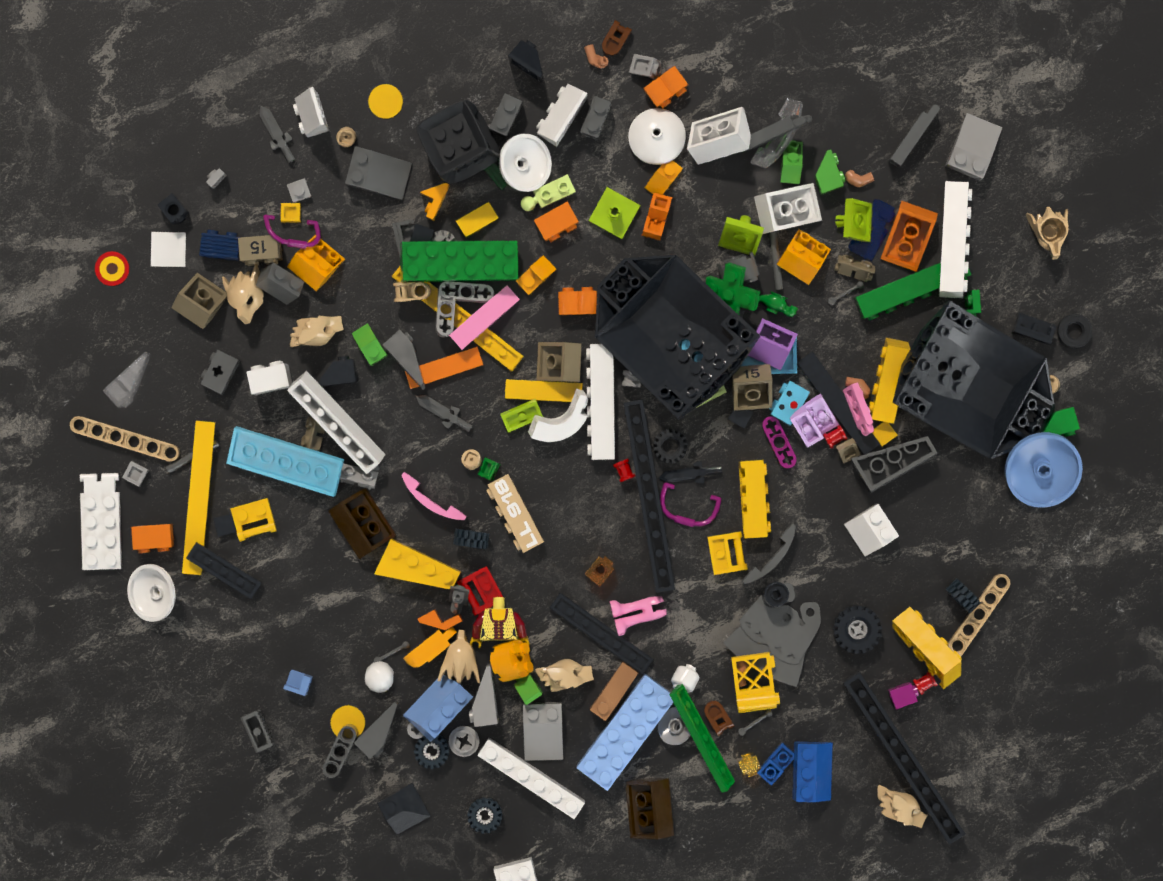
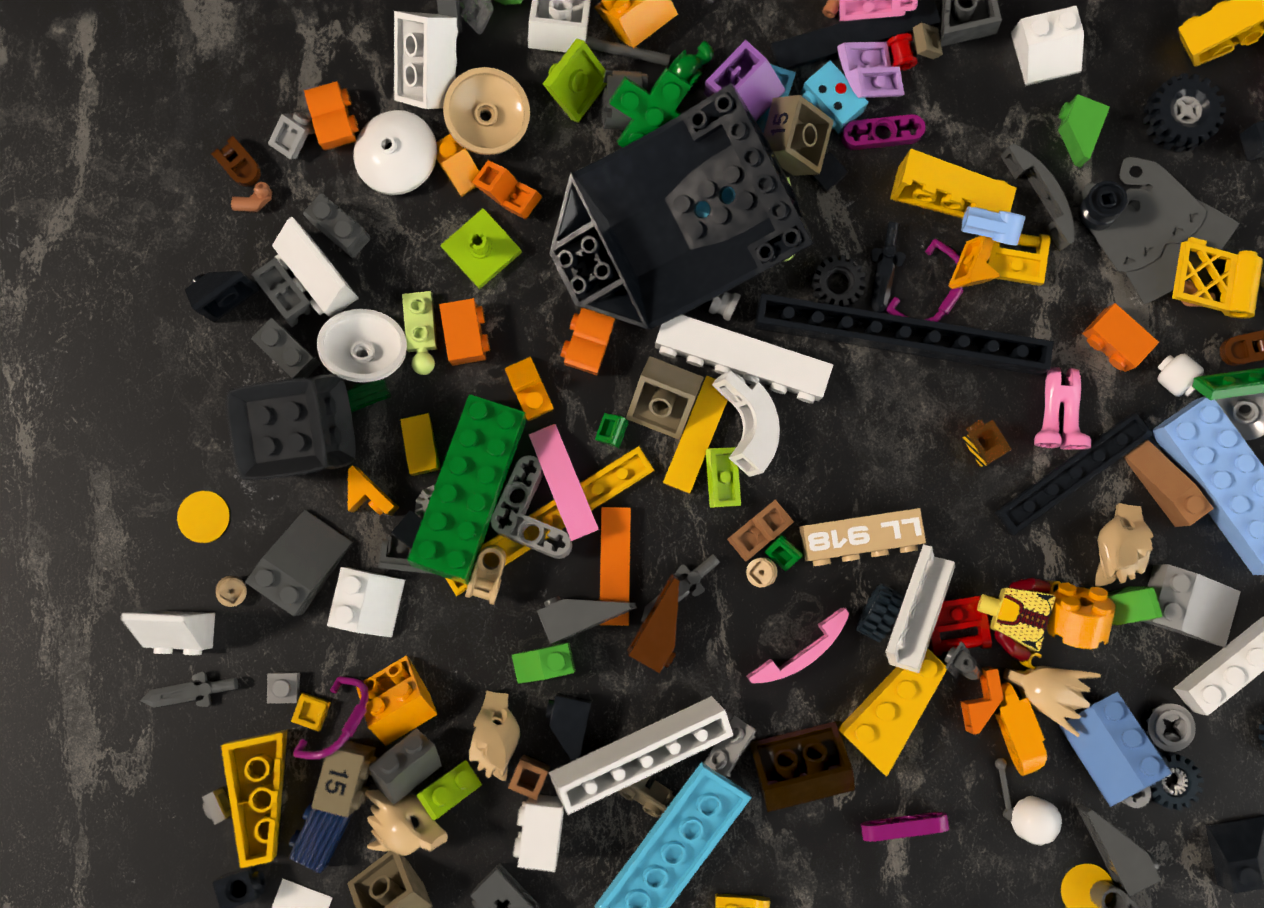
camera: 70 degrees left, 5 degrees down
(238, 196) = (255, 790): none -> yellow wedge
(274, 314) = (449, 790): none -> lime plate
(299, 360) = (529, 777): none -> medium nougat brick
(348, 597) = (905, 826): none -> magenta beam
(368, 223) = (366, 602): none -> white slope
(408, 407) = (657, 634): none -> reddish brown slope
(481, 561) = (919, 611): none -> white fence
(484, 709) = (1141, 682): light grey slope -> none
(497, 450) = (760, 530): none -> medium nougat slope
(527, 336) = (612, 430): none -> green slope
(542, 99) = (282, 291): none -> dark grey hinge
(624, 470) = (851, 359): red bush -> none
(695, 633) = (1120, 338): none -> orange brick
(701, 200) = (489, 92): none -> tan dish
(709, 525) = (972, 264): none -> light orange slope
(736, 535) = (1001, 226): none -> light blue piece
(825, 566) = (1081, 127): none -> bright green slope

